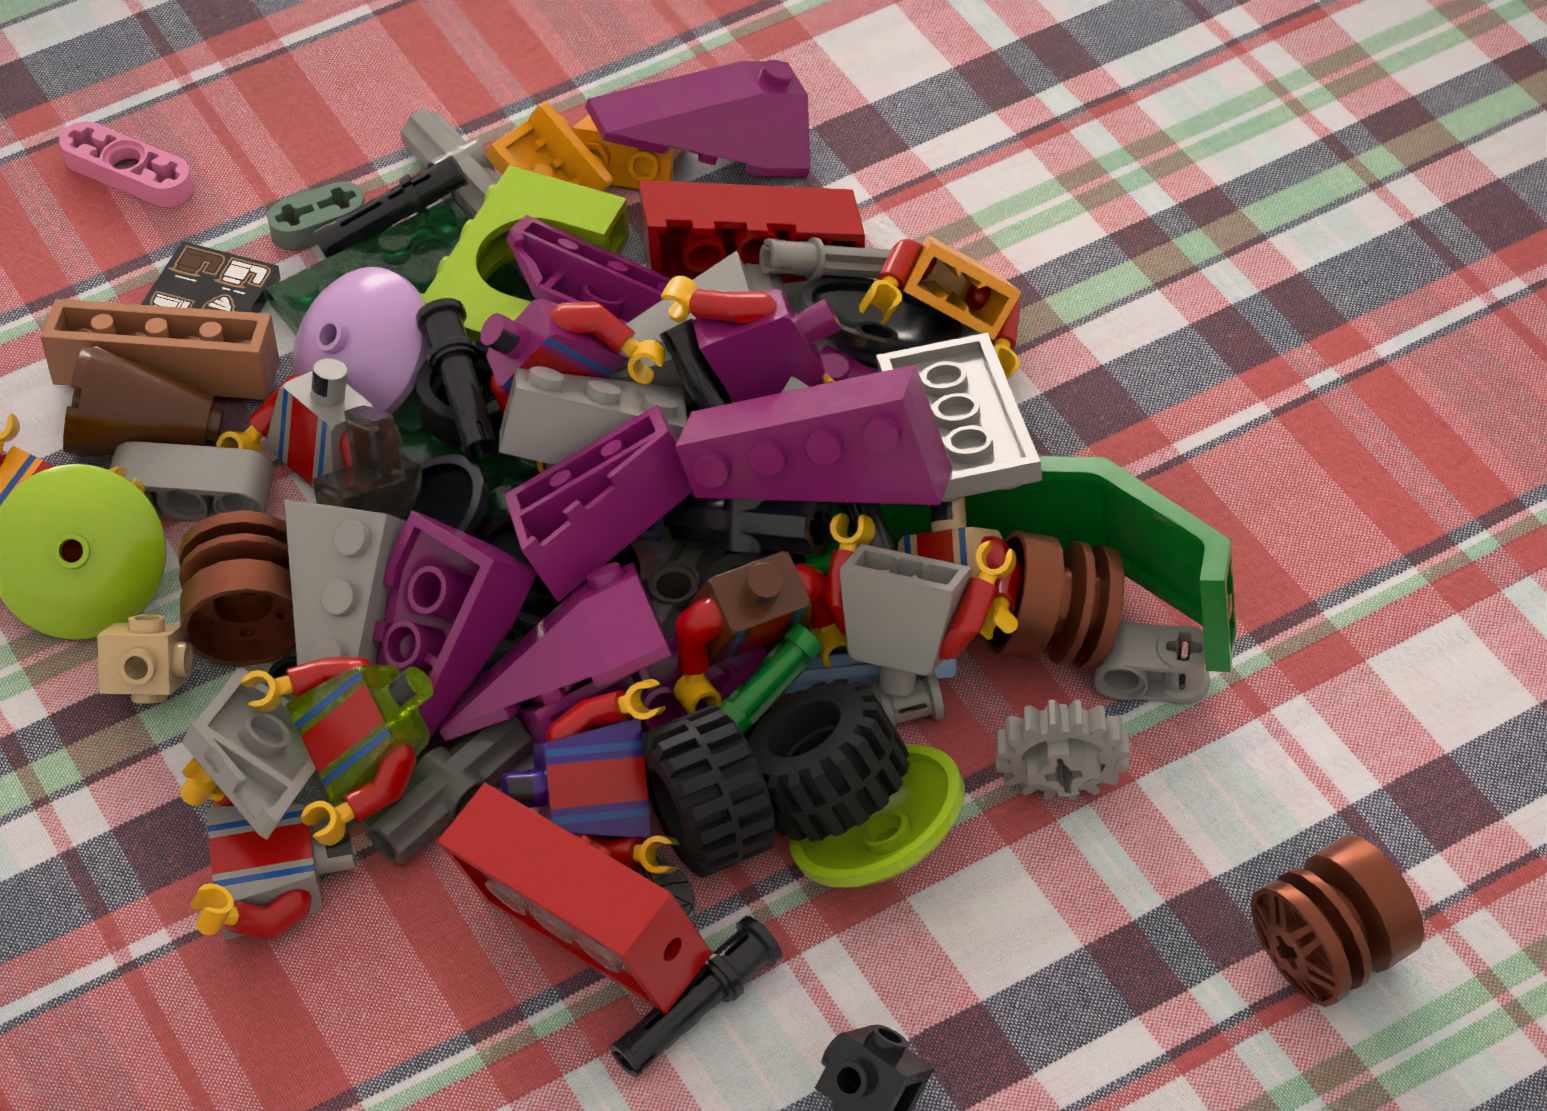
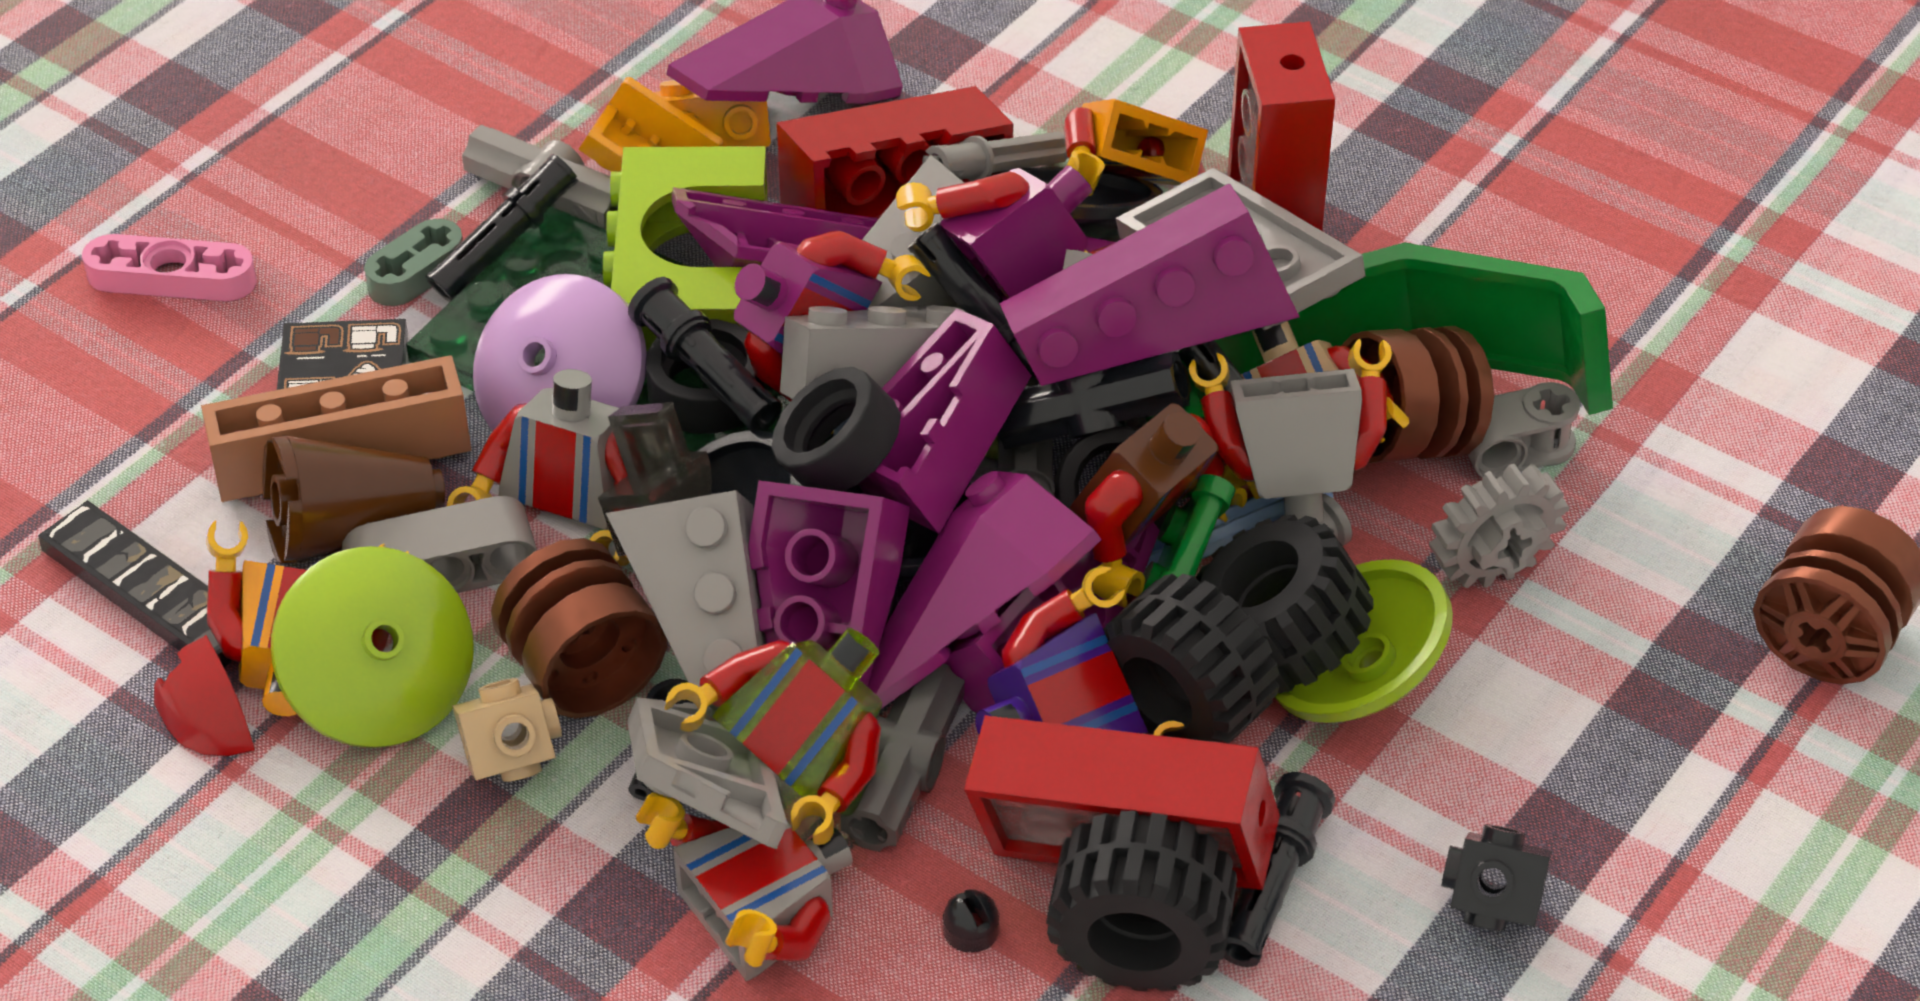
camera: 25 degrees left, 5 degrees down
(440, 953) = (960, 926): none -> black hinge
(504, 485) = (856, 447): none -> black tyre
(543, 990) = (1142, 901): none -> black tyre
(1055, 328) = (1282, 118): none -> red brick

